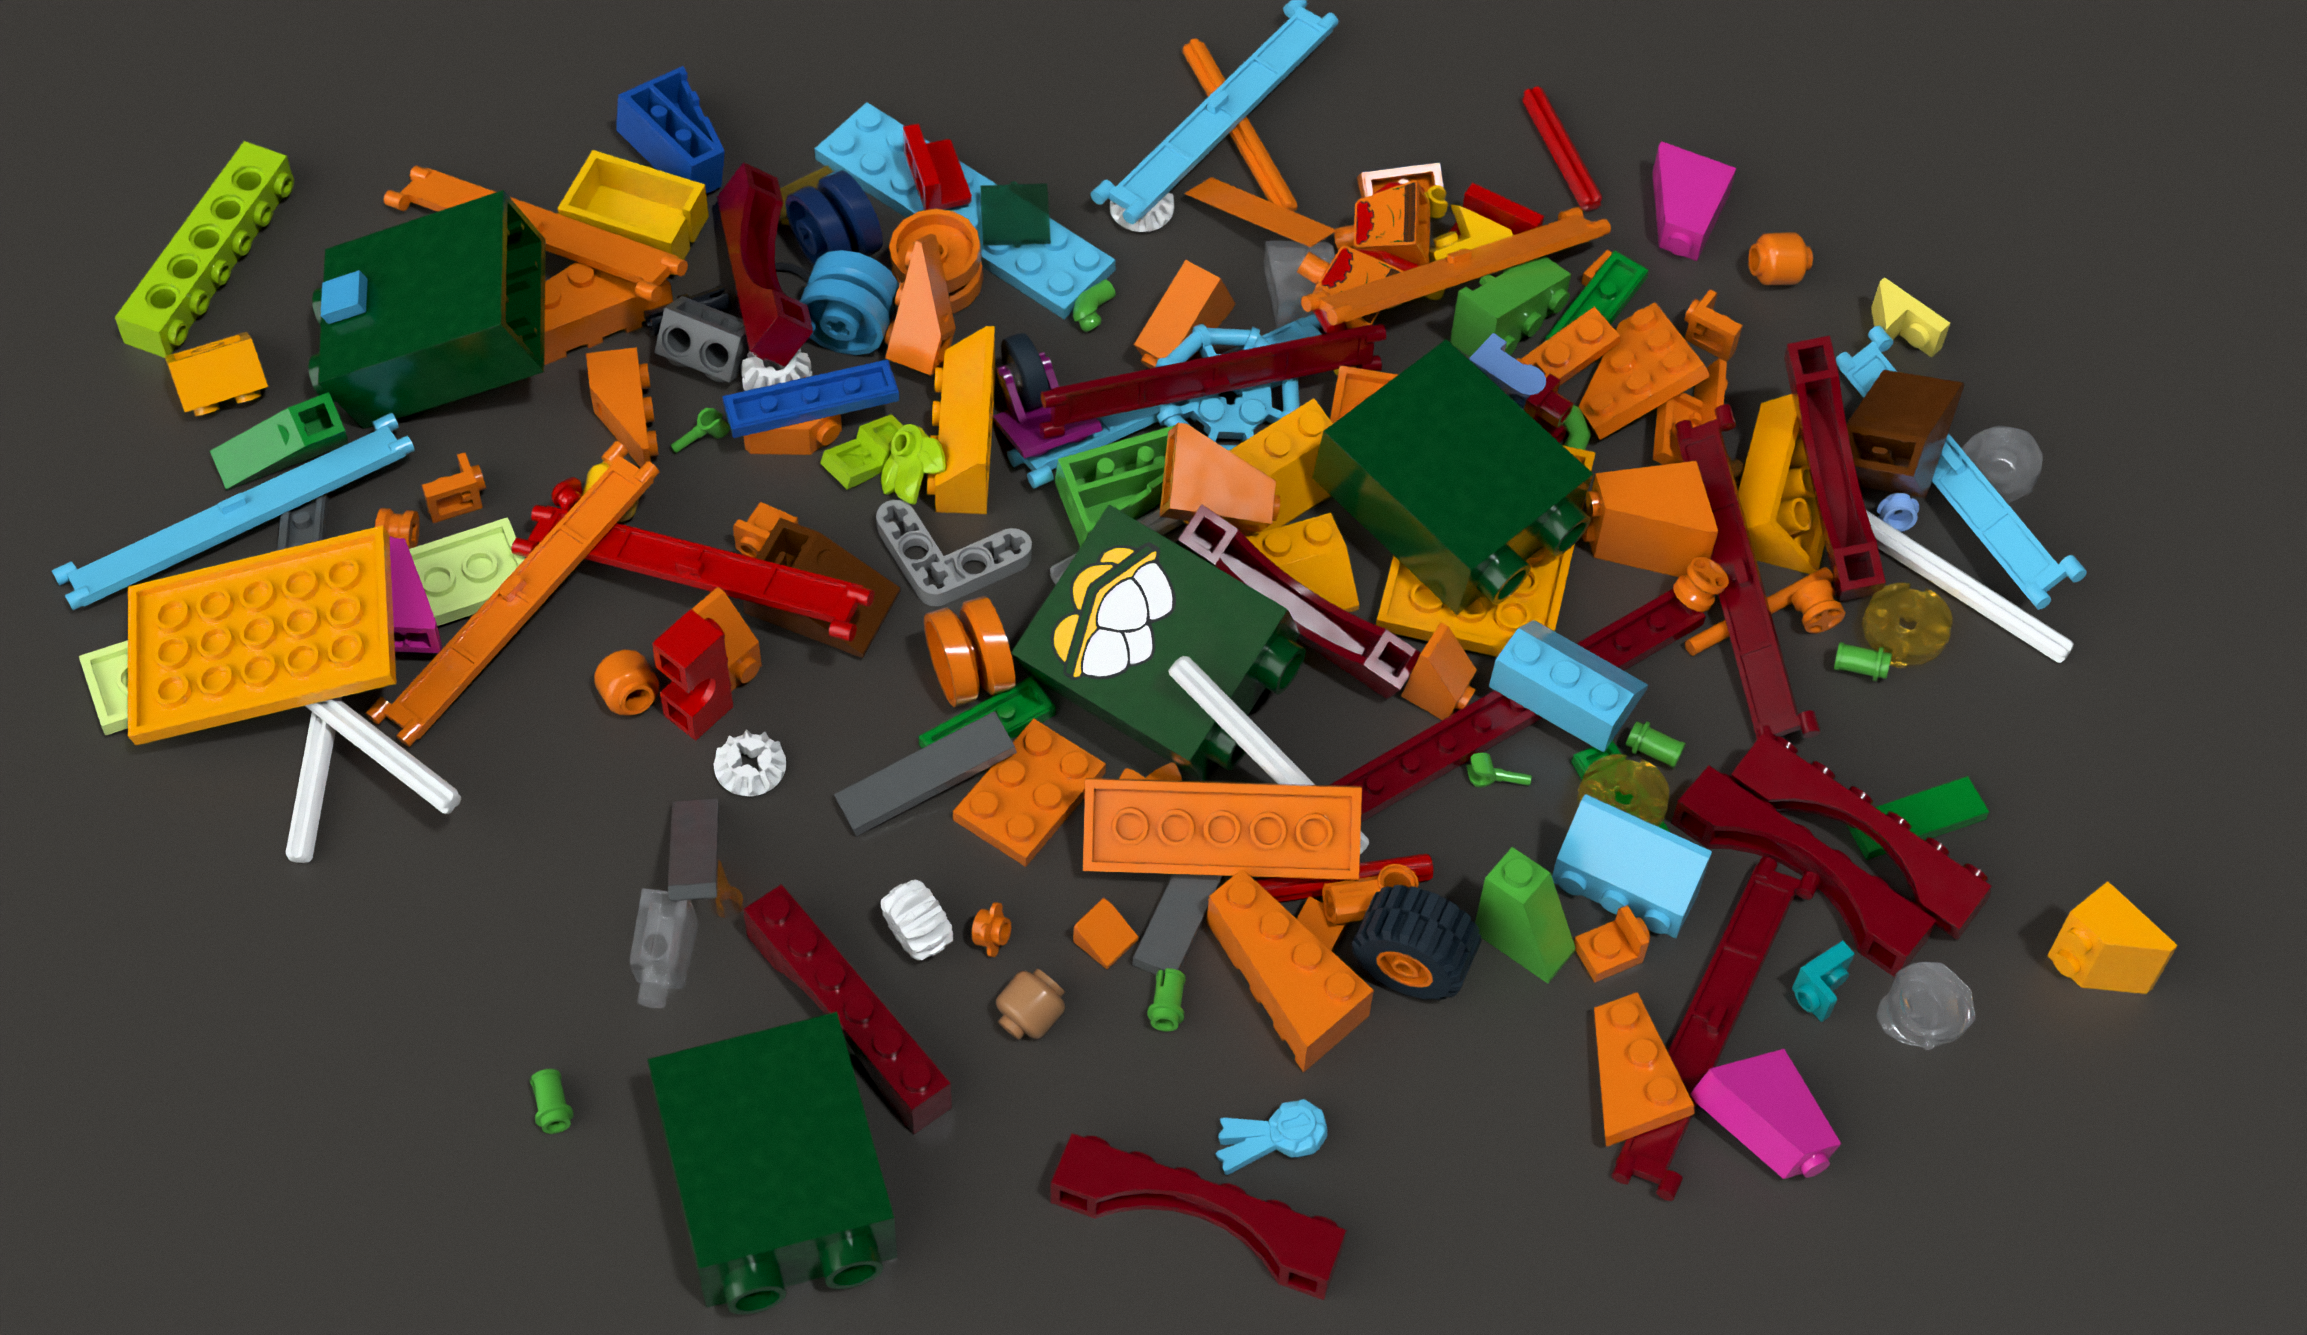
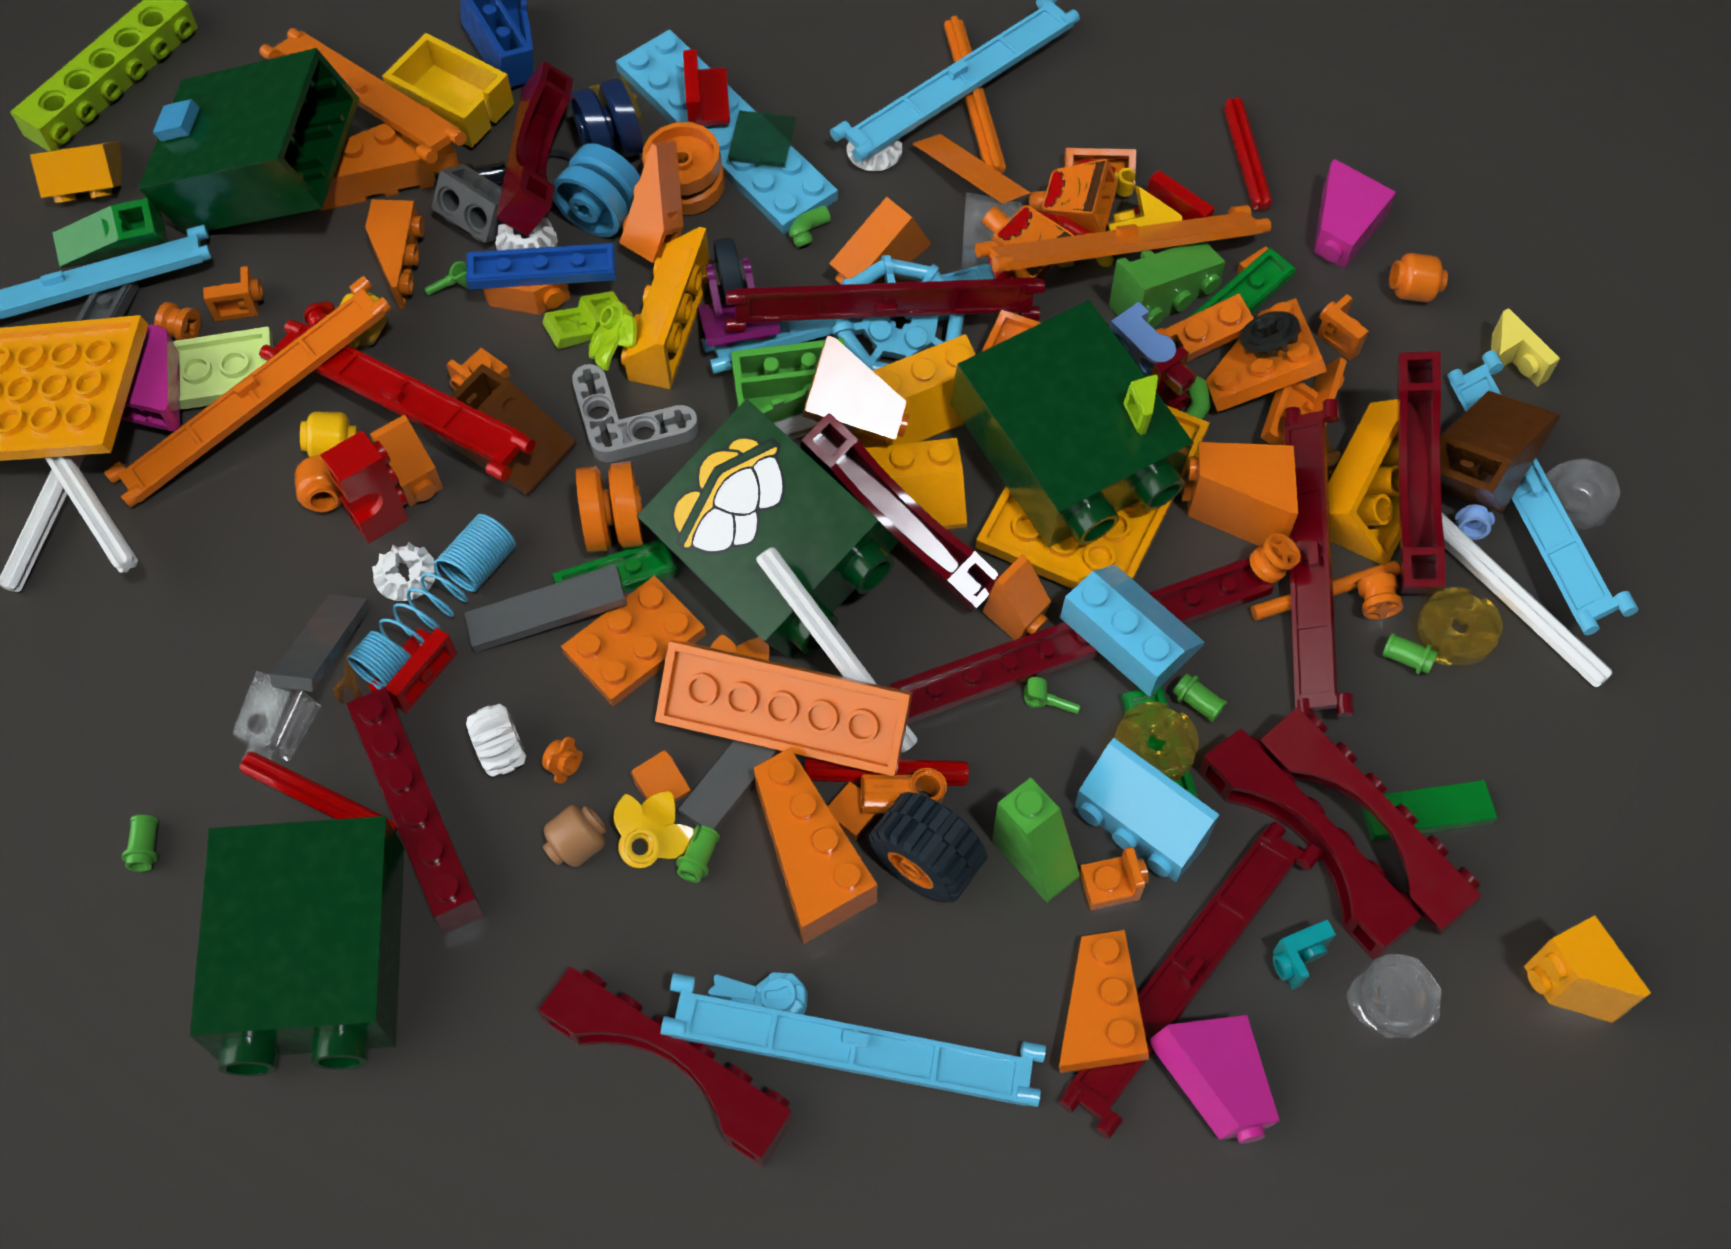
camera: 15 degrees right, 5 degrees up
(618, 627) = (324, 431): none -> yellow head
(714, 1007) = (304, 789): none -> red axle
(795, 859) = (421, 668): none -> red panel
(821, 741) = (467, 563): none -> medium azure piece
(1109, 979) = (653, 825): none -> yellow plate
(1387, 1158) = (853, 1047): none -> medium azure piece
(1531, 440) = (1140, 402): none -> lime slope
(1633, 337) = (1260, 333): none -> pearl dark grey gear

